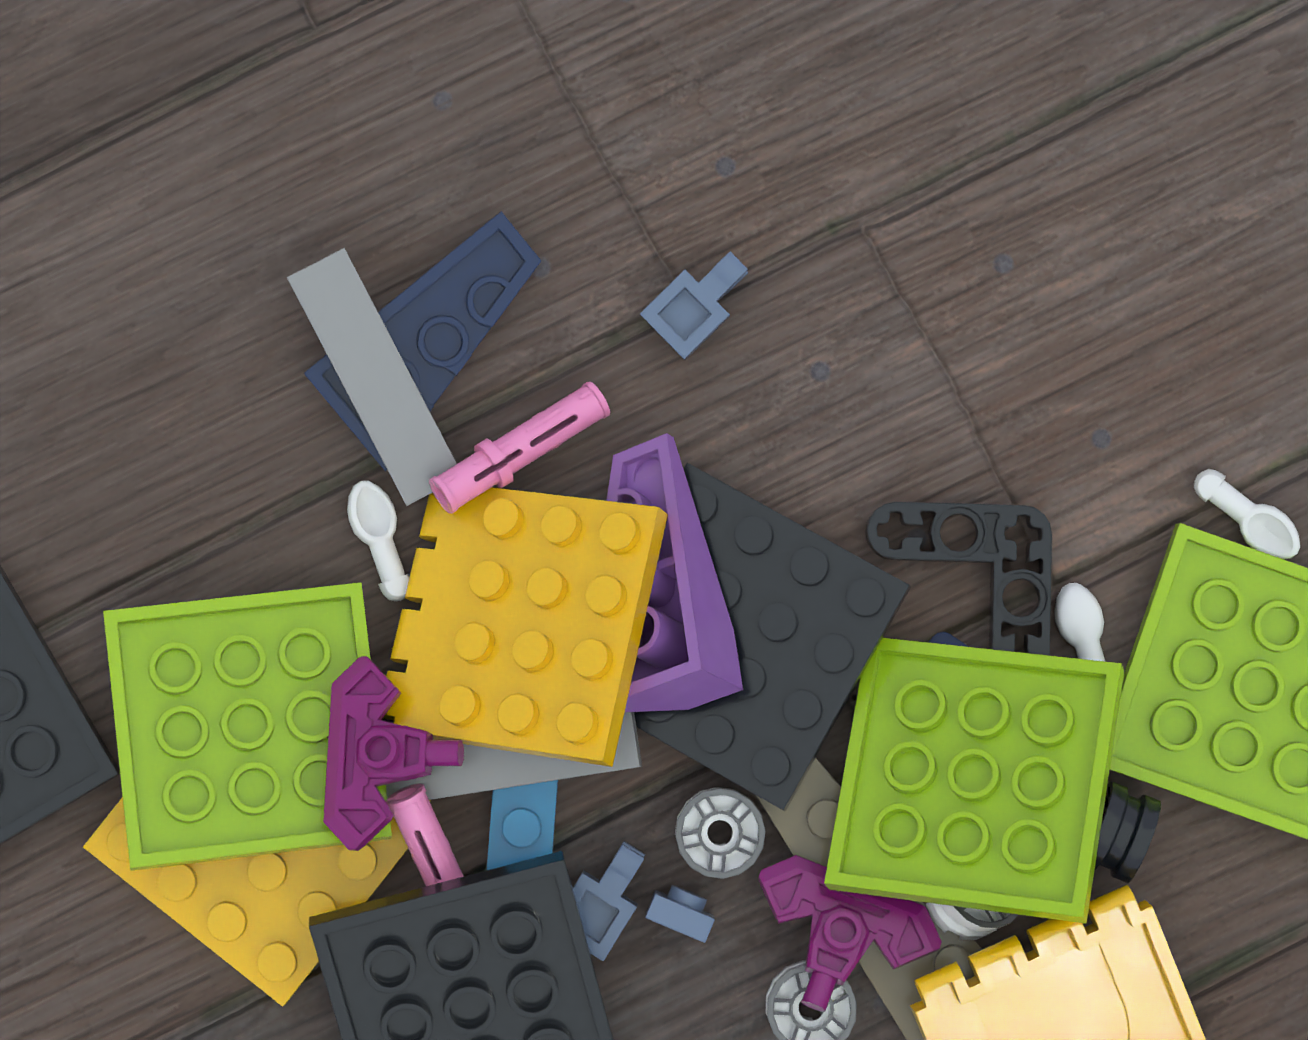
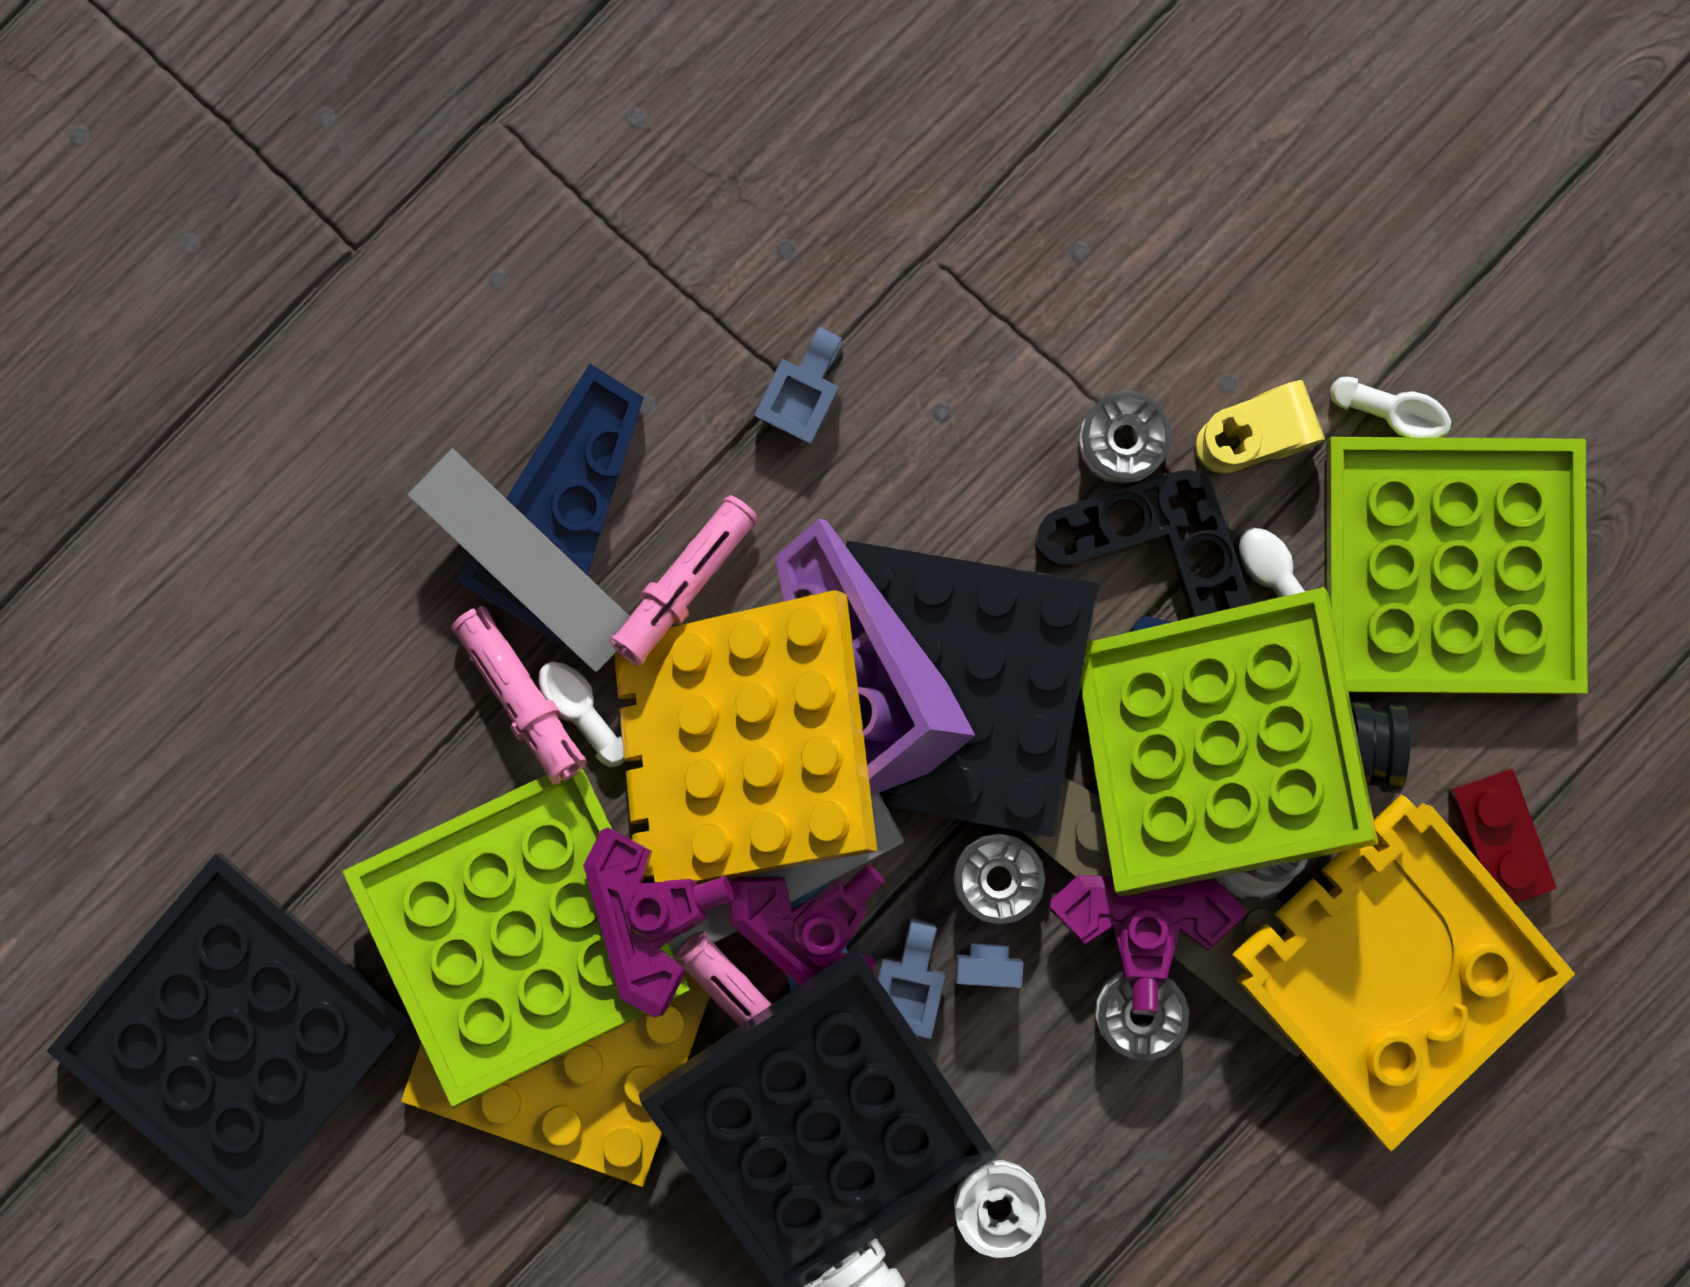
camera: 15 degrees left, 0 degrees up
(332, 526) = (530, 712): none -> bright pink pin
(524, 822) = (812, 933): none -> magenta piece
(1010, 461) = (1150, 431): none -> wheel
(1124, 493) = (1267, 426): none -> light yellow piece
(1213, 957) = (1503, 834): none -> dark red plate

